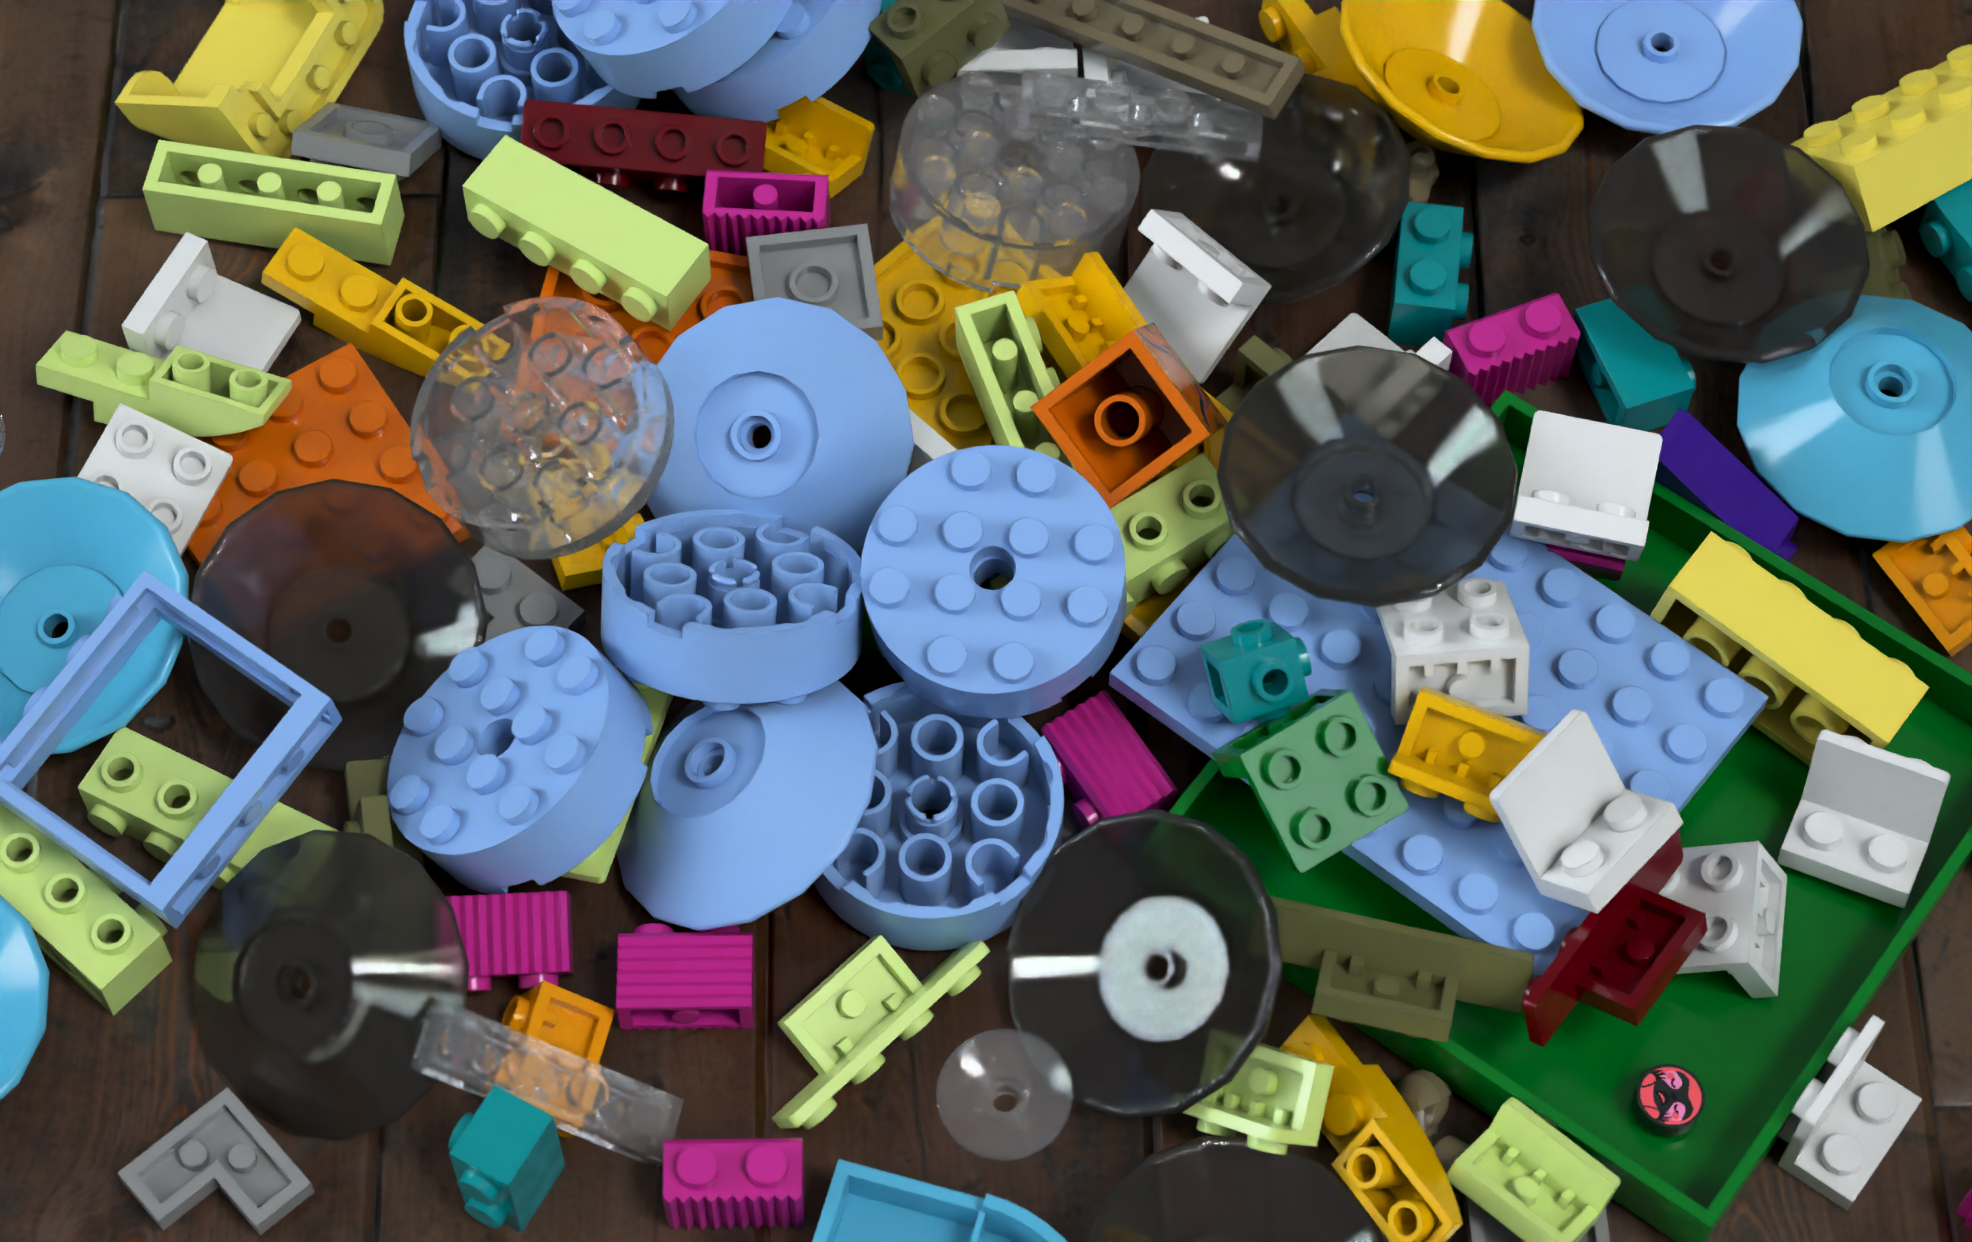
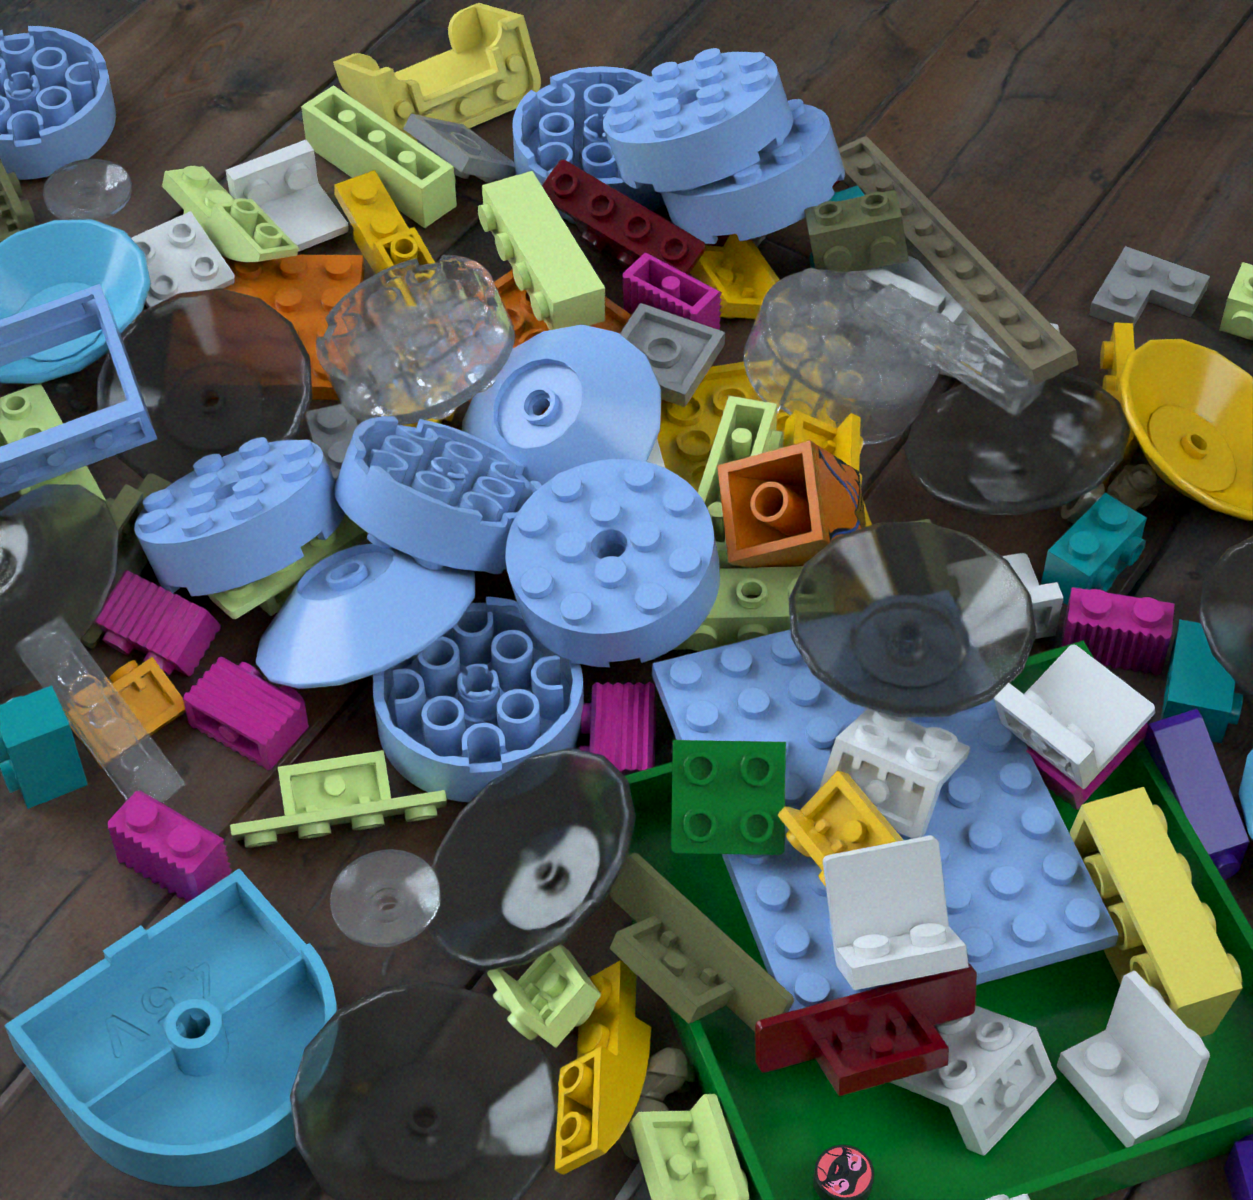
camera: 35 degrees right, 10 degrees down
(1193, 290) = (908, 470): white bracket -> none
(1256, 671) = (719, 708): teal brick -> none

